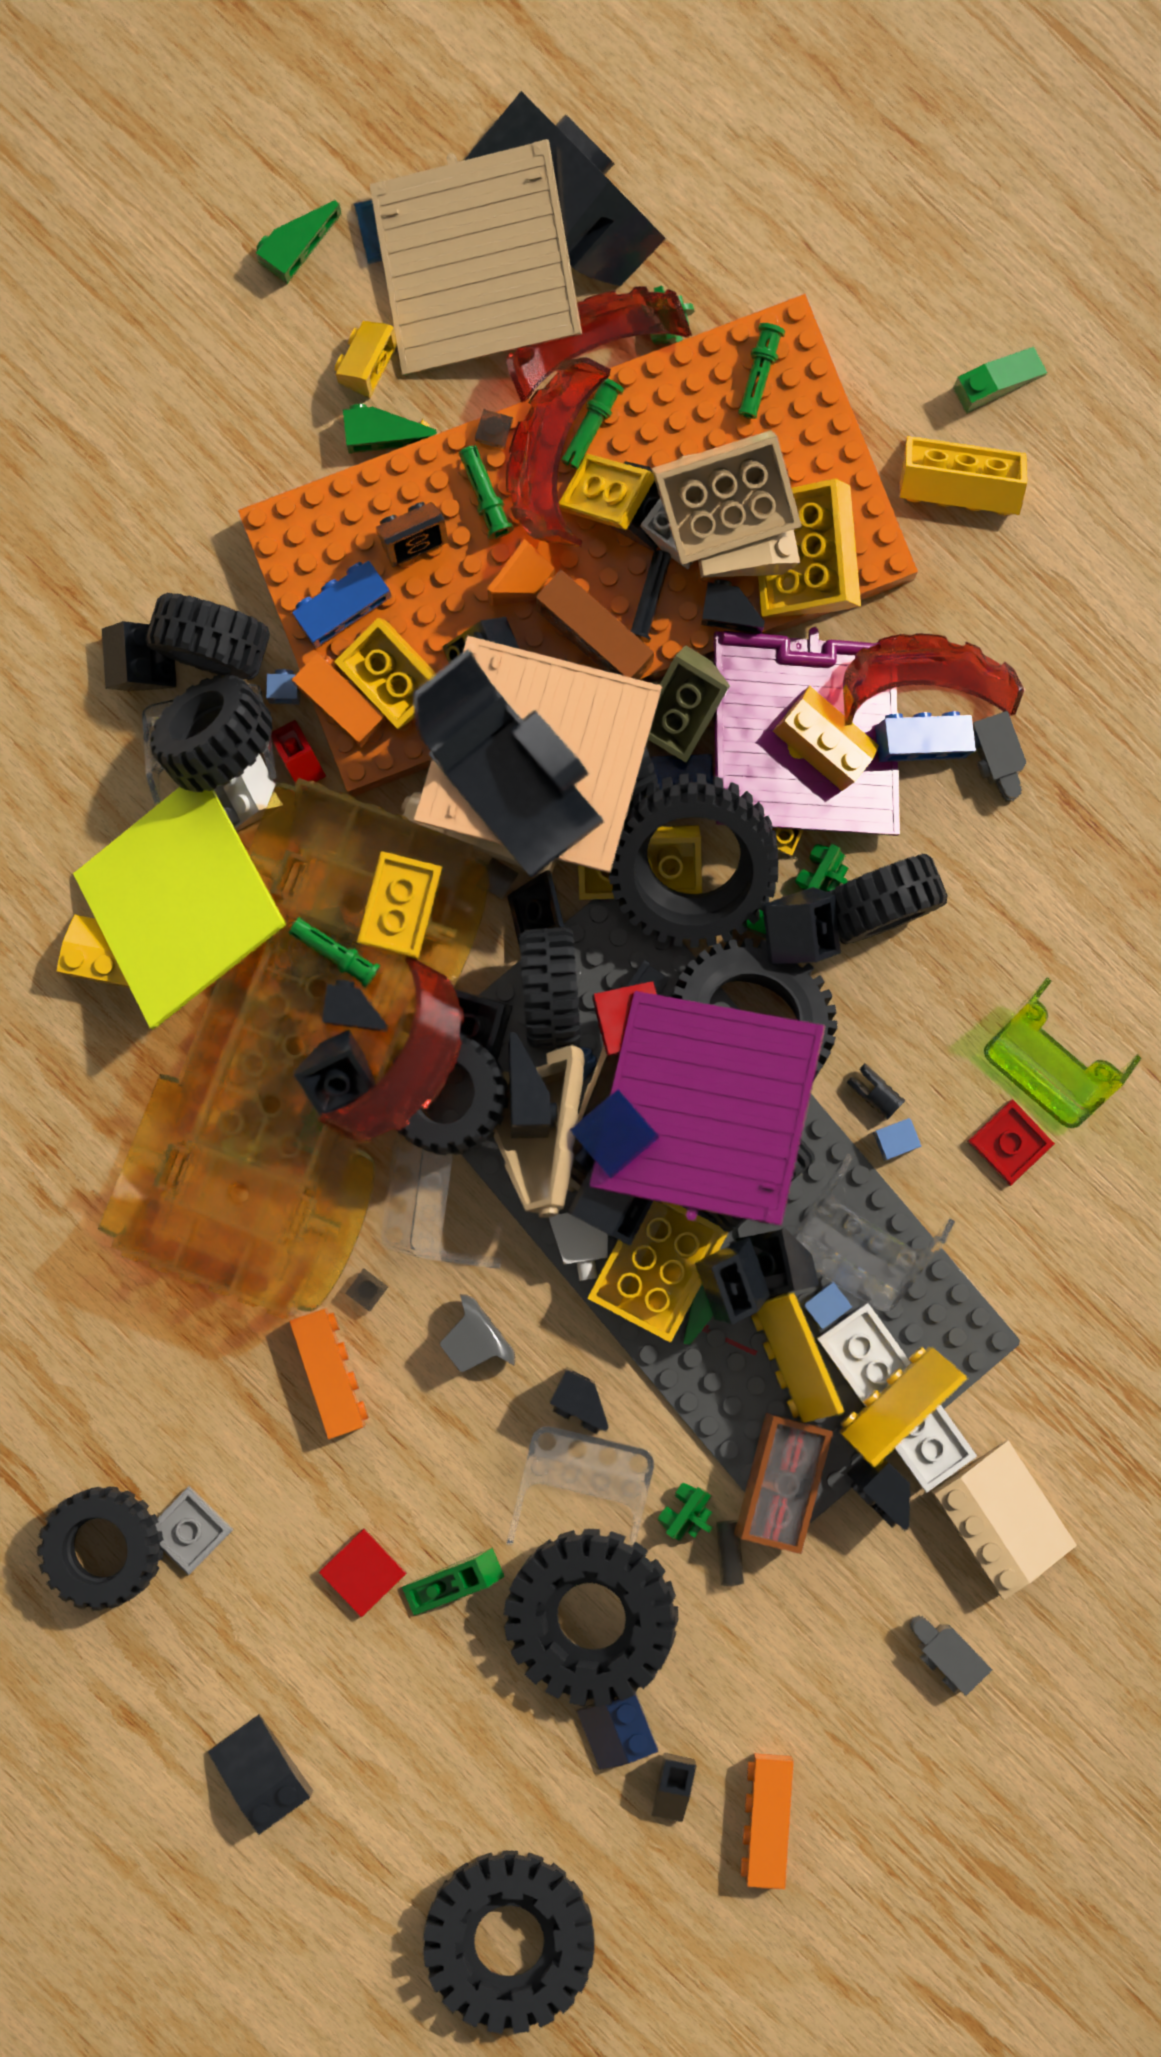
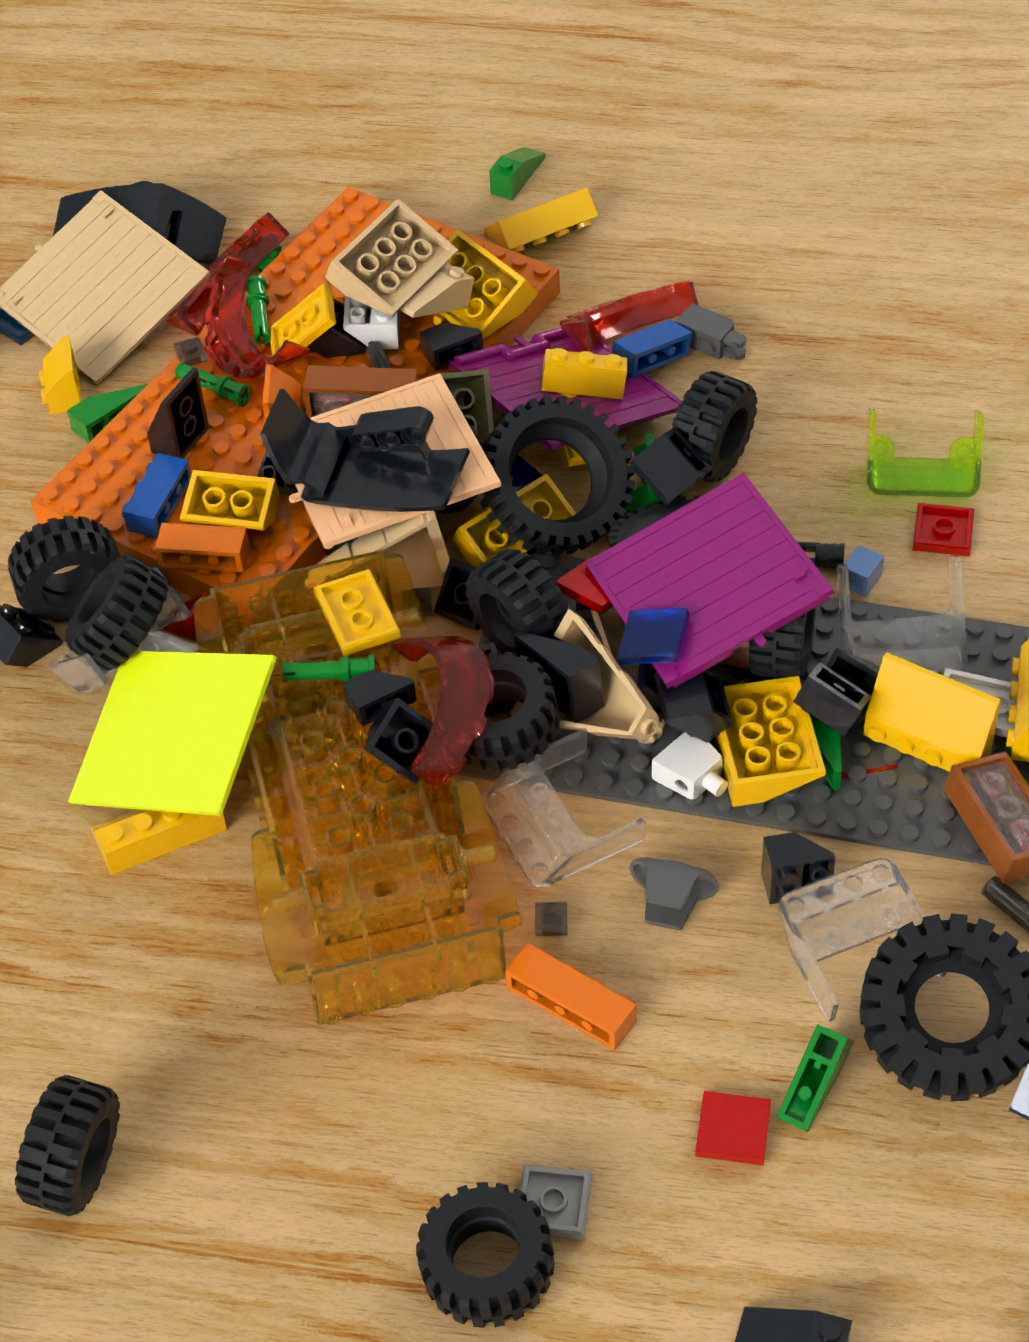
camera: 30 degrees left, 35 degrees down
(679, 1524) = (958, 896): green hips -> none
(767, 357) = (348, 216): green pin -> none

